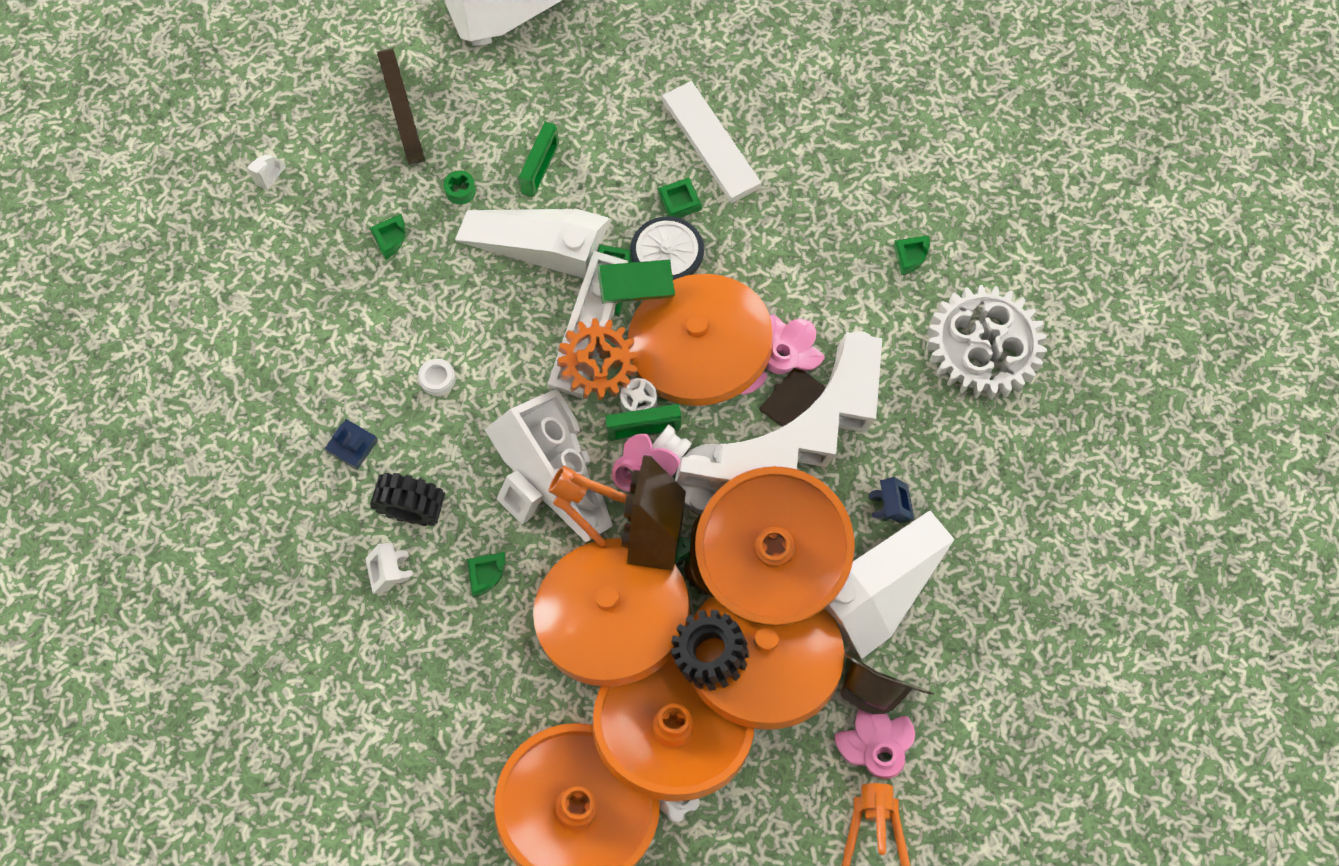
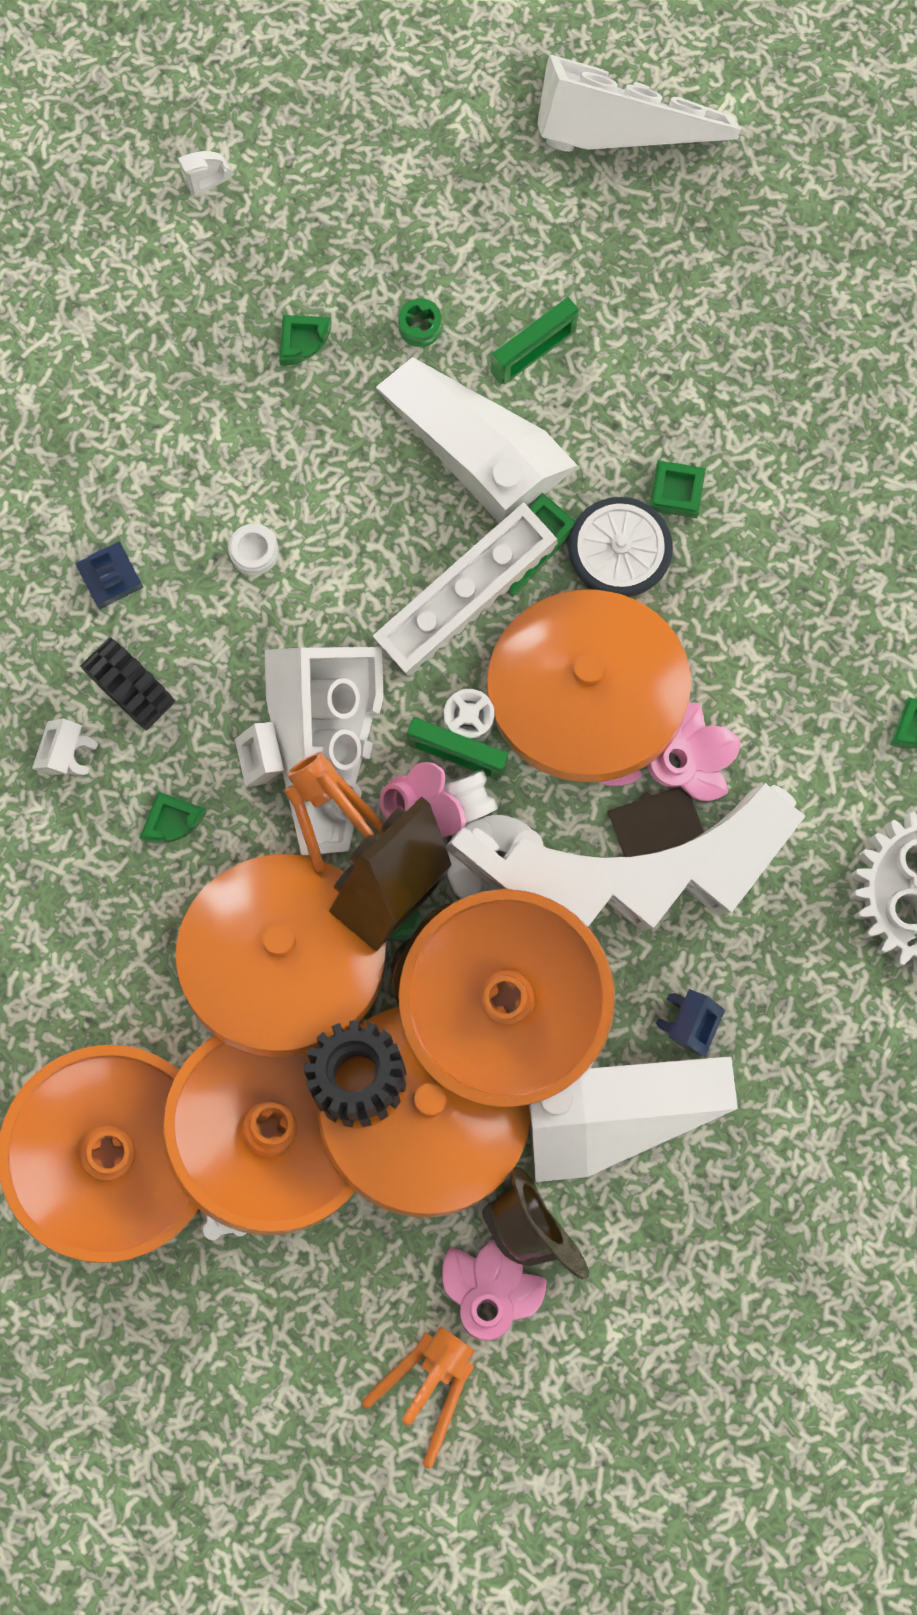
camera: 30 degrees right, 10 degrees up
(401, 106) = (410, 175): dark brown beam -> none
(582, 359) = (422, 632): orange gear -> none
(636, 281) = (550, 570): green tile -> none
(711, 142) = (763, 436): white tile -> none

